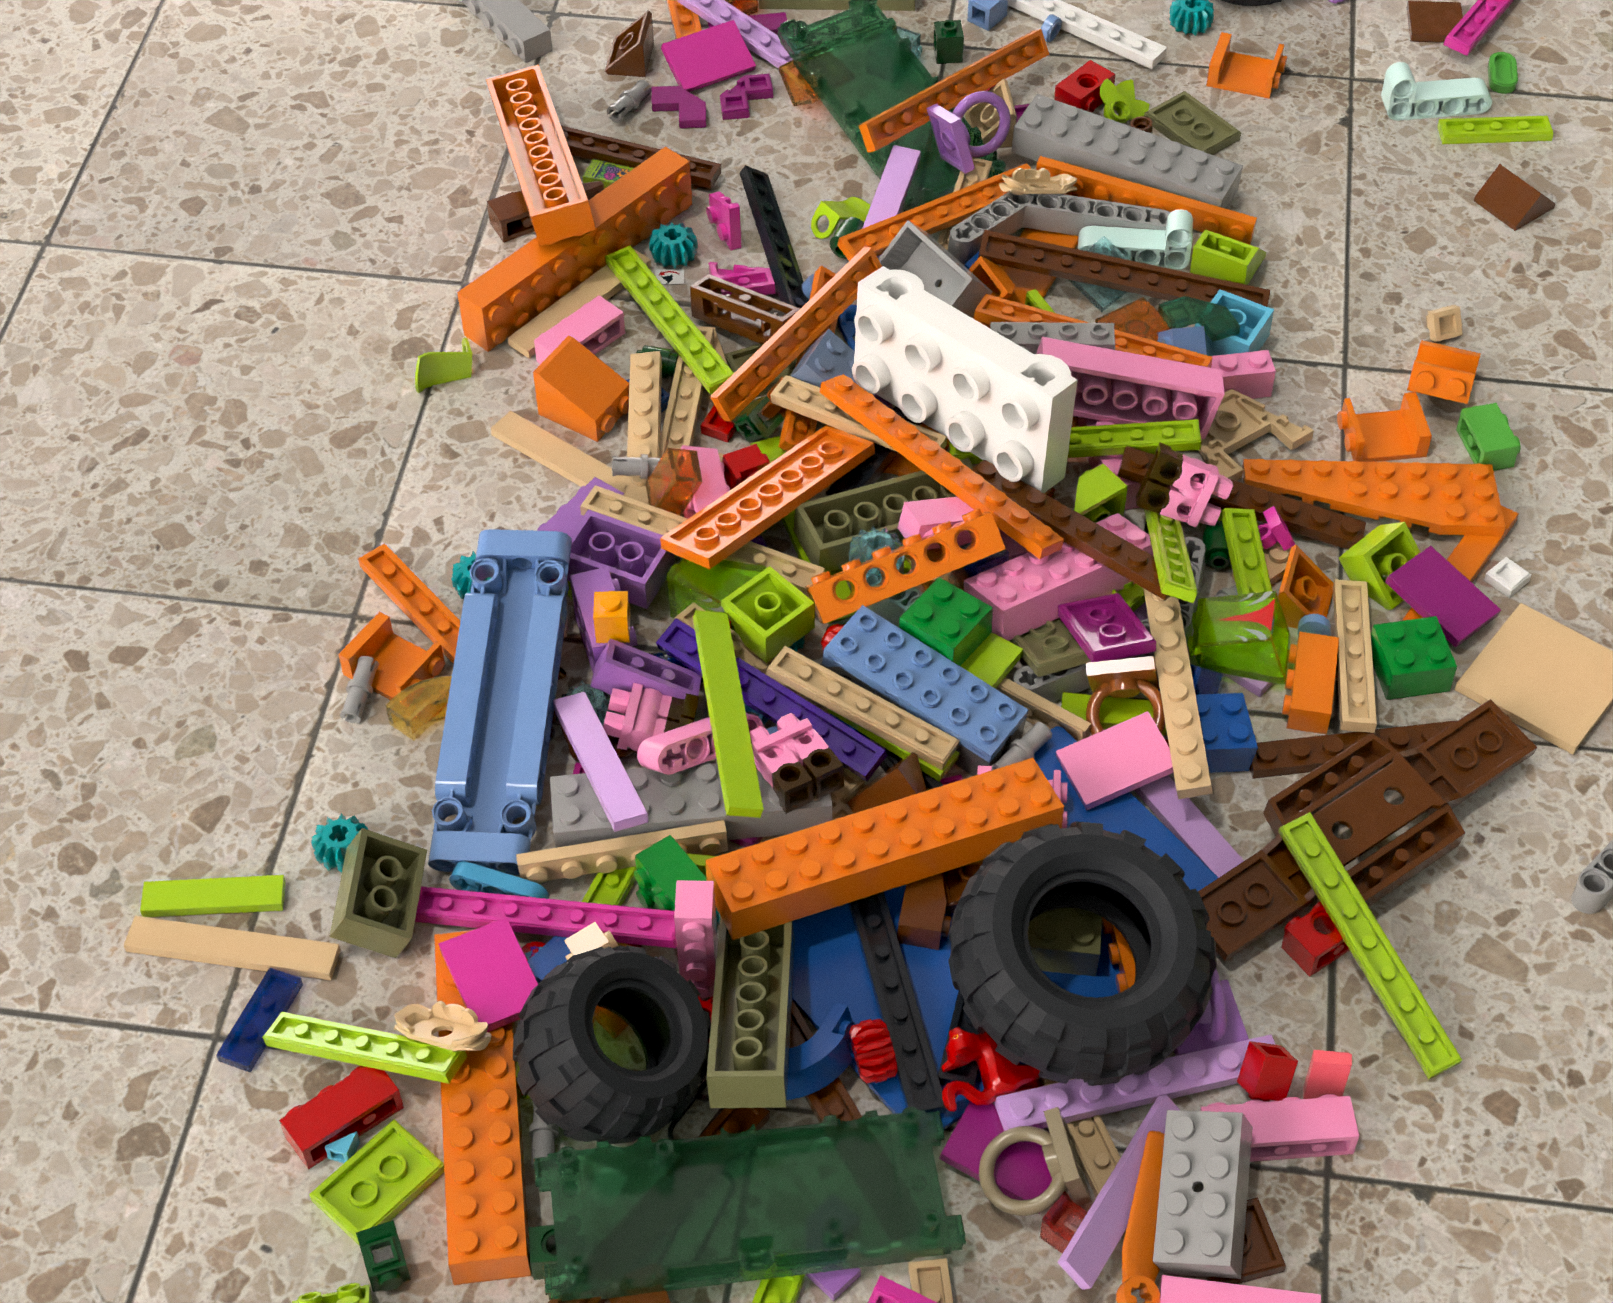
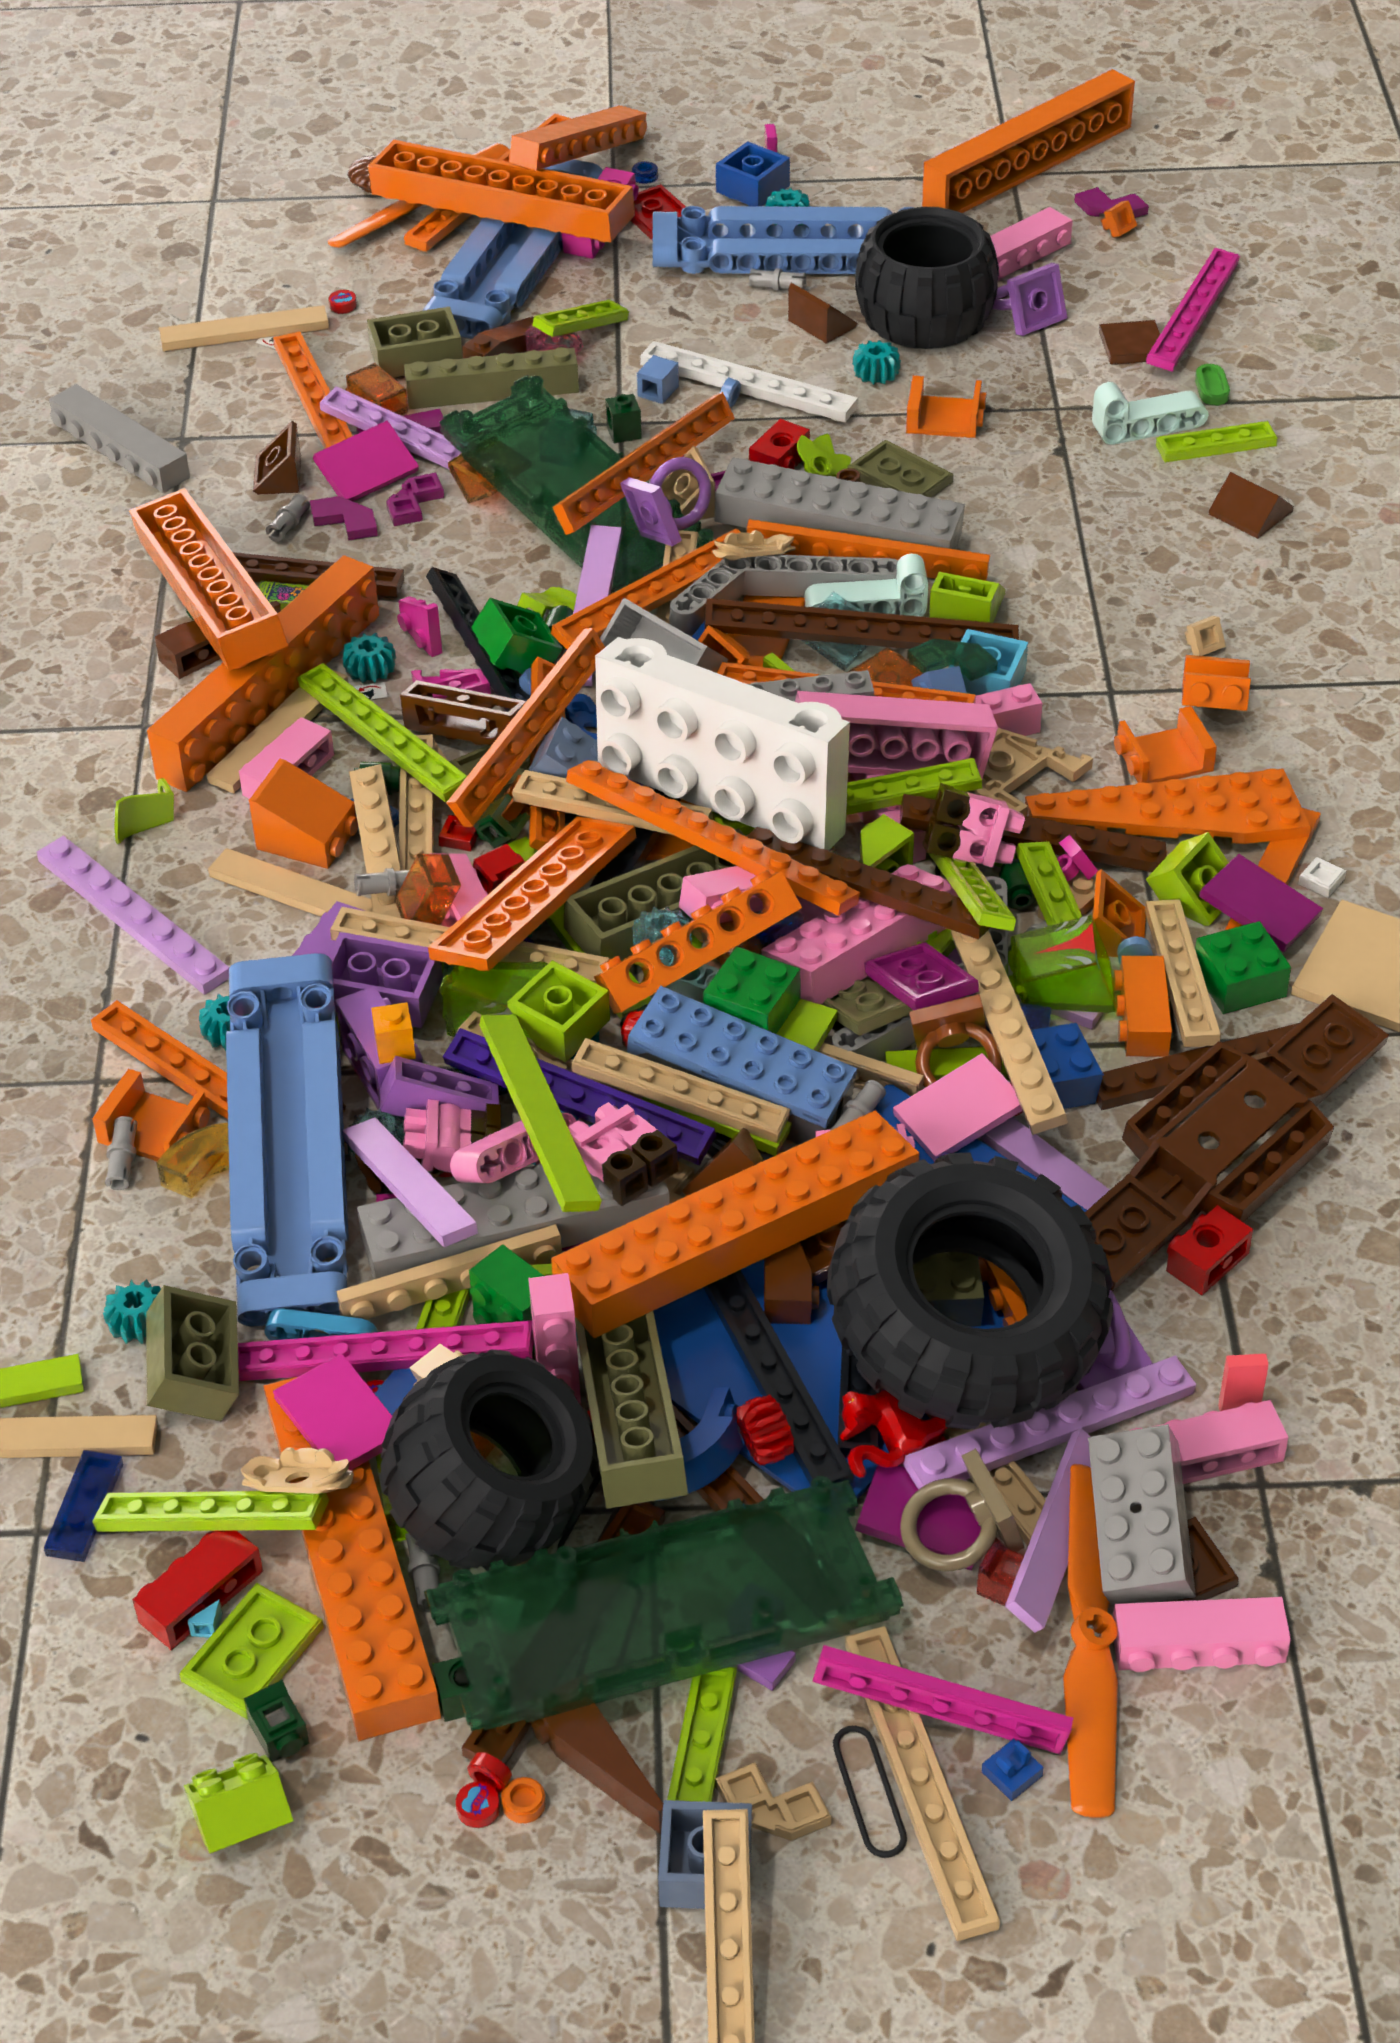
camera: 10 degrees left, 5 degrees down
(417, 462) = (134, 915): none -> lavender plate
(805, 242) = (514, 636): none -> green brick
(1267, 1071) = (1180, 1389): red brick -> none
(1370, 946) = (1260, 1251): lime tile -> none
(1488, 436) = (1273, 741): bright green brick -> none

